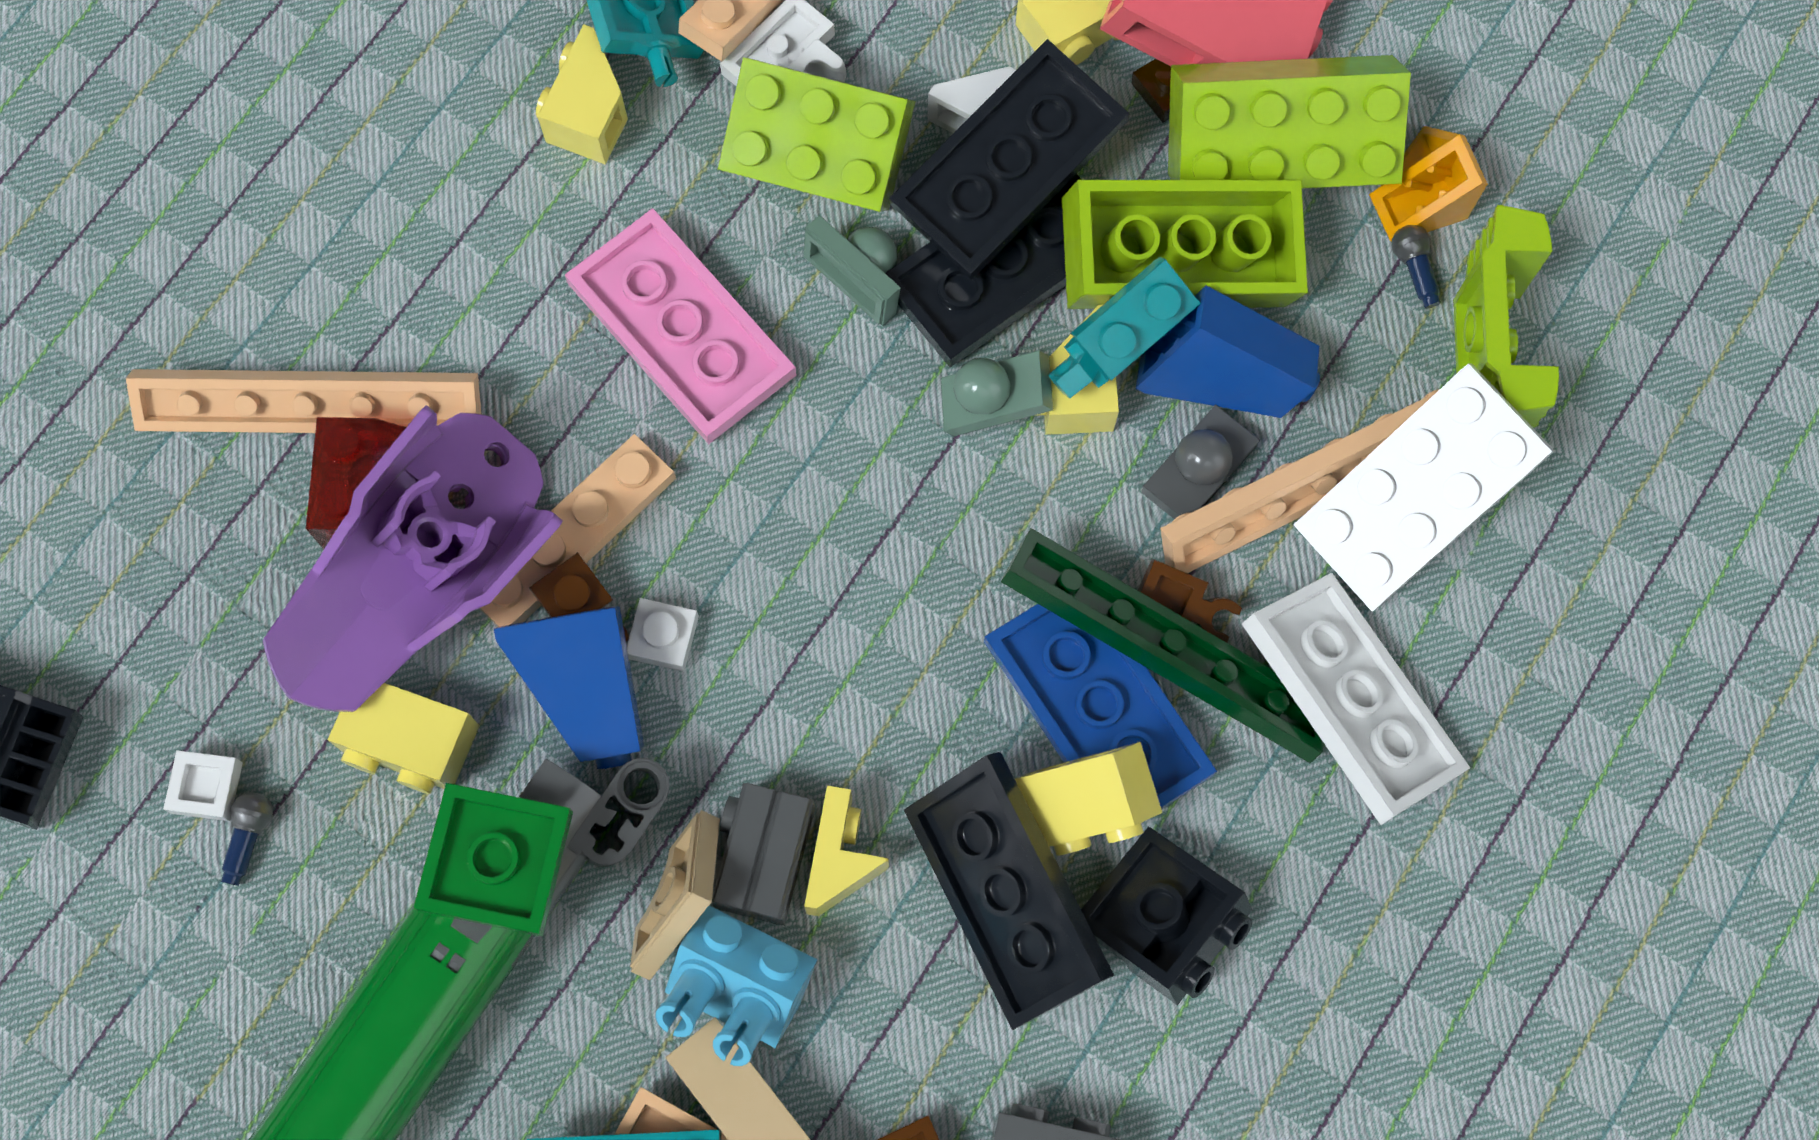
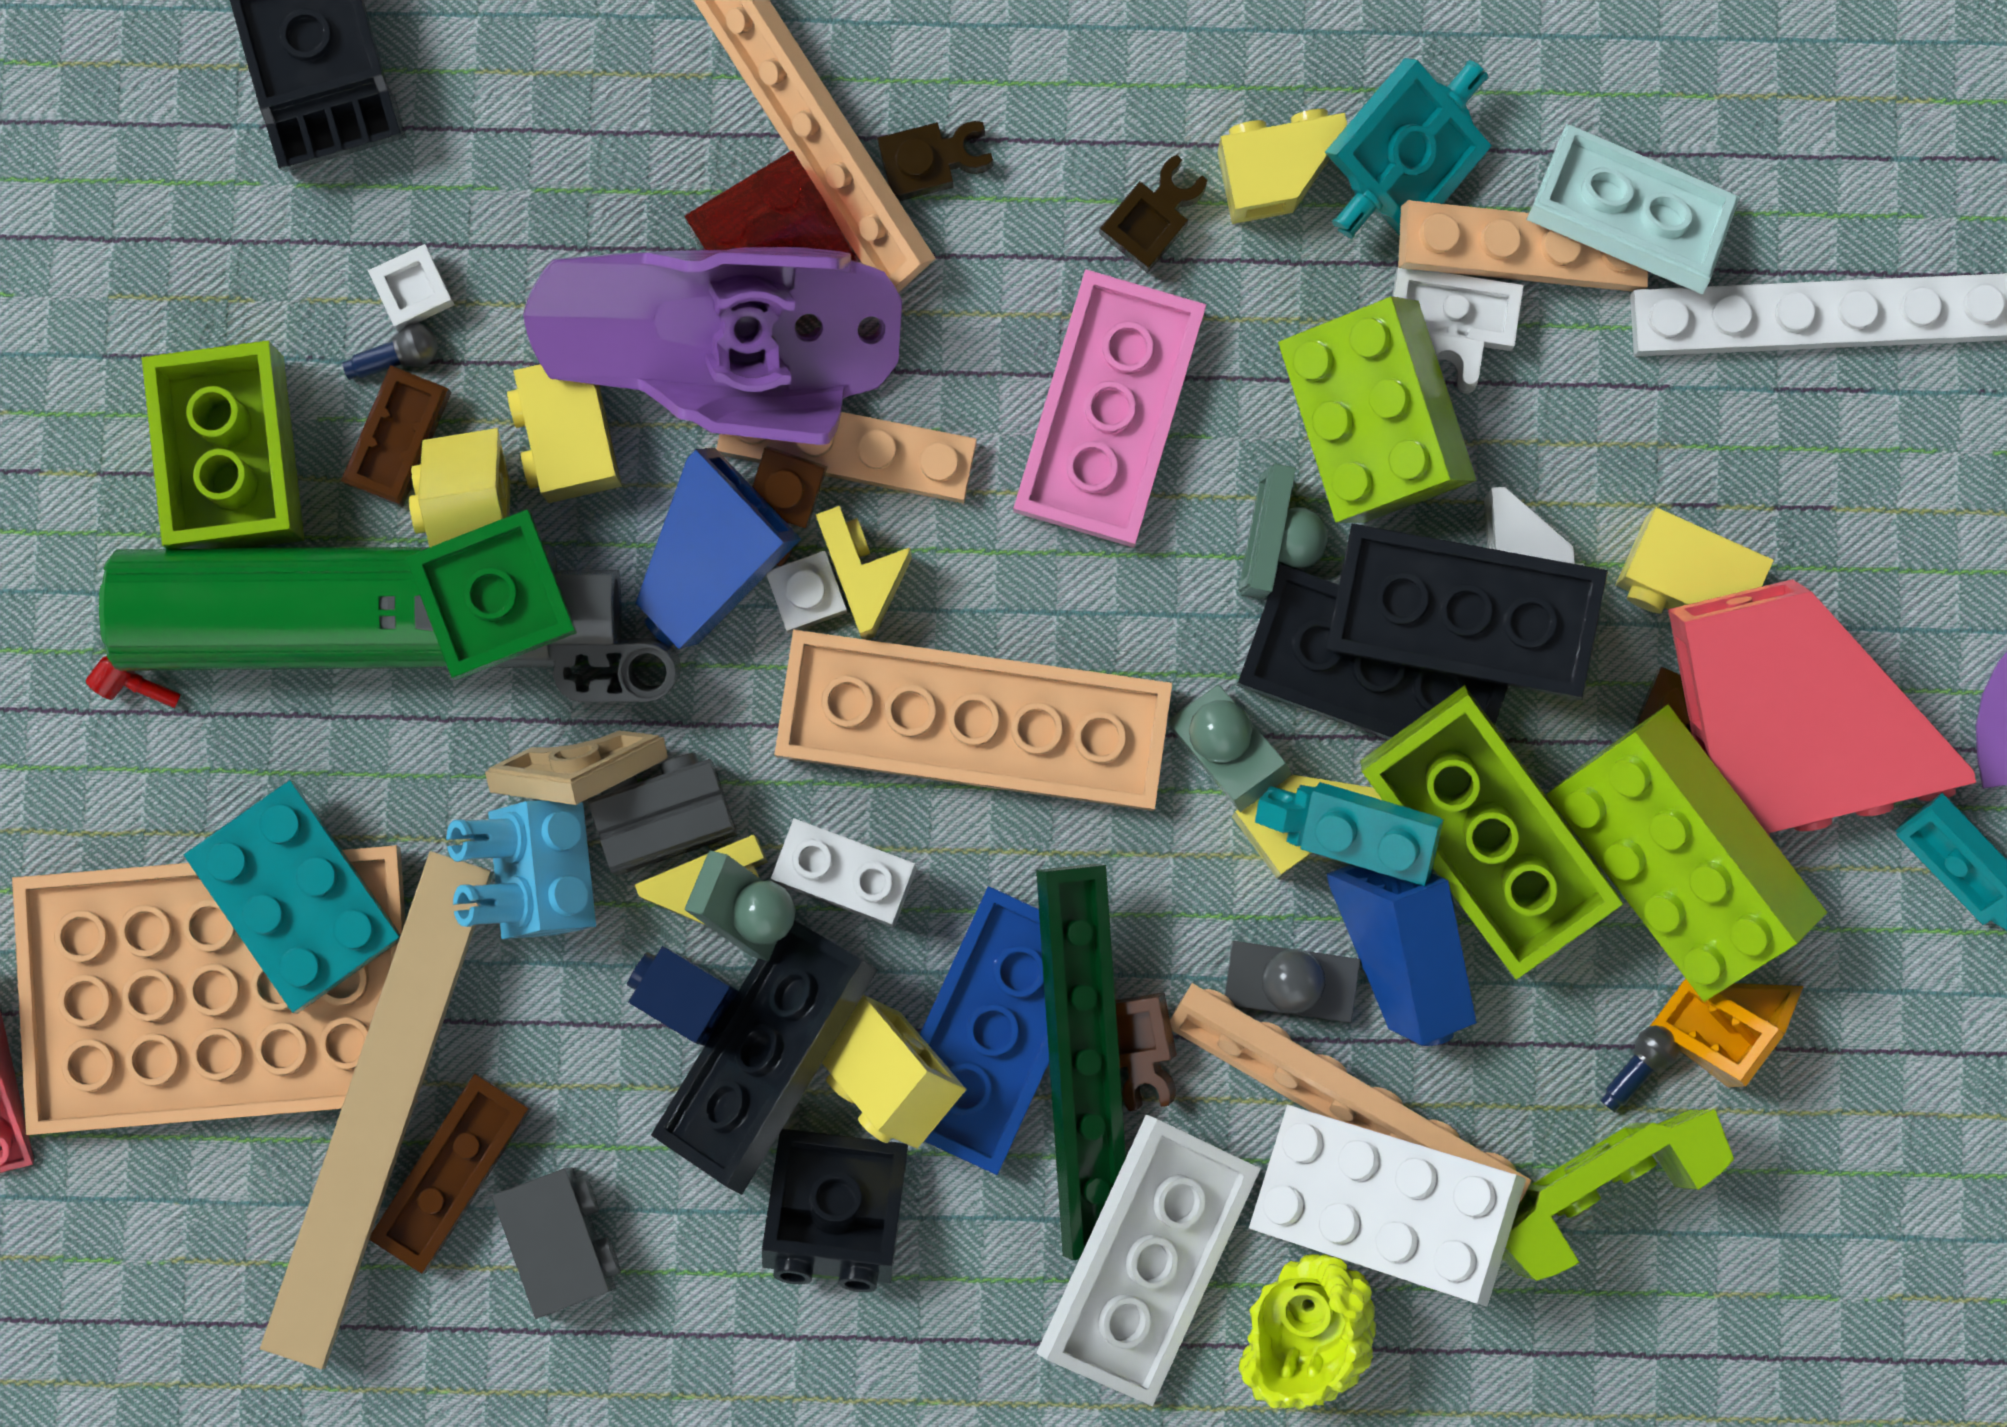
camera: 60 degrees right, 10 degrees up
(213, 1018) = (223, 447): none -> lime brick
(311, 874) = (392, 437): none -> reddish brown plate
(386, 840) = (459, 485): none -> light yellow brick
(399, 340) = (921, 161): none -> dark brown plate
(560, 209) = (1149, 220): none -> dark brown plate
(687, 585) = (866, 586): none -> light yellow slope
(846, 572) = (973, 720): none -> light nougat plate
(882, 828) = (741, 905): none -> sand green tile
(903, 738) = (844, 873): none -> white brick
(918, 923) = (680, 994): none -> dark blue brick
(1498, 610) = (1306, 1349): none -> neon yellow hair

